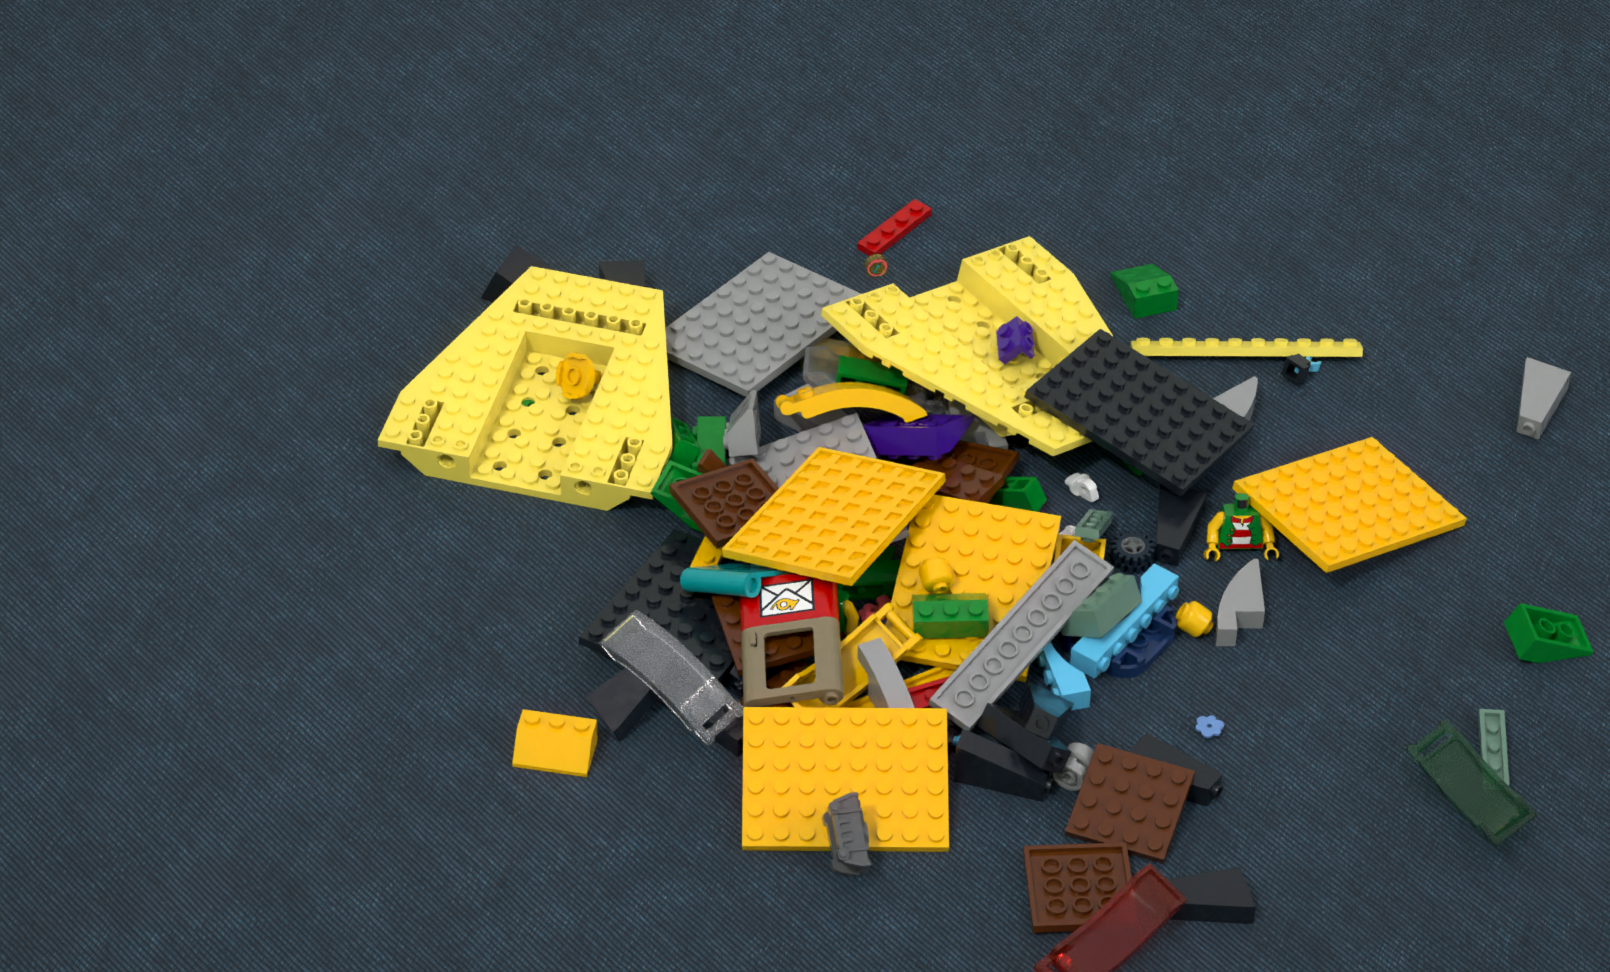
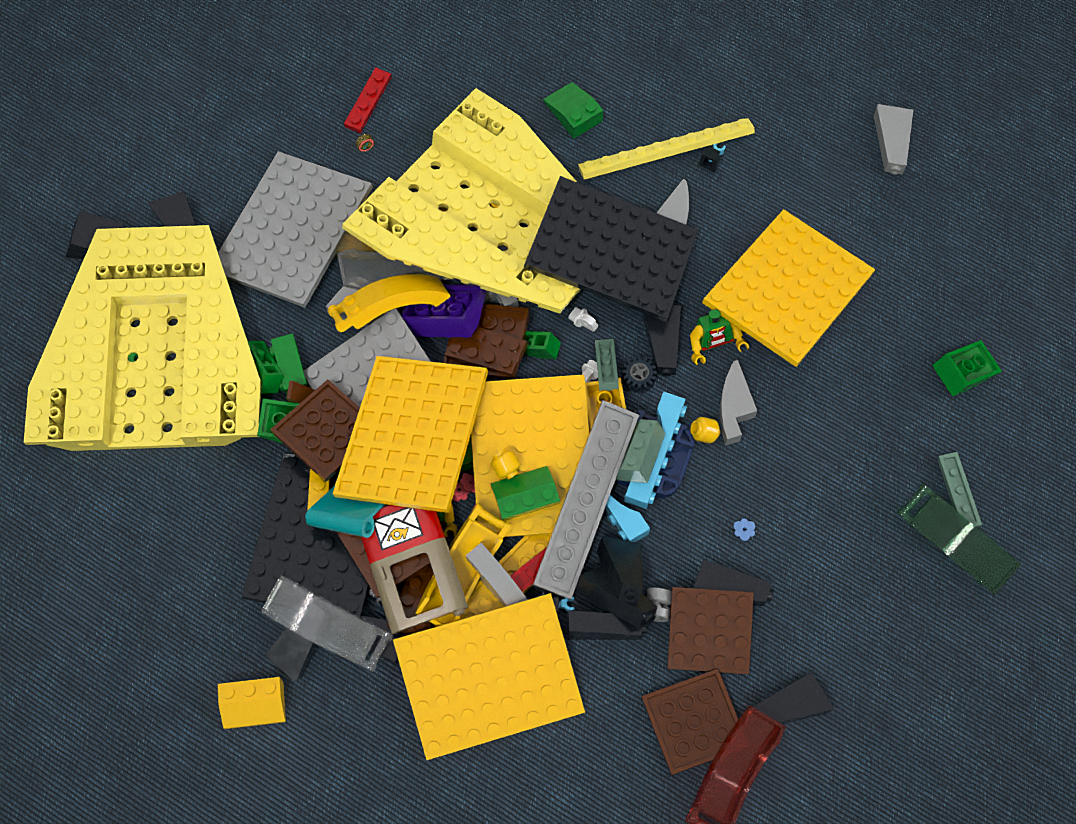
camera: 15 degrees left, 25 degrees up
(576, 376) = (165, 330): yellow tile -> none
(744, 429) = (311, 346): light grey slope -> none
(847, 836) = (508, 737): dark grey piece -> none
(865, 371) = (380, 267): green brick -> none
(1014, 339) = (496, 200): dark purple bracket -> none

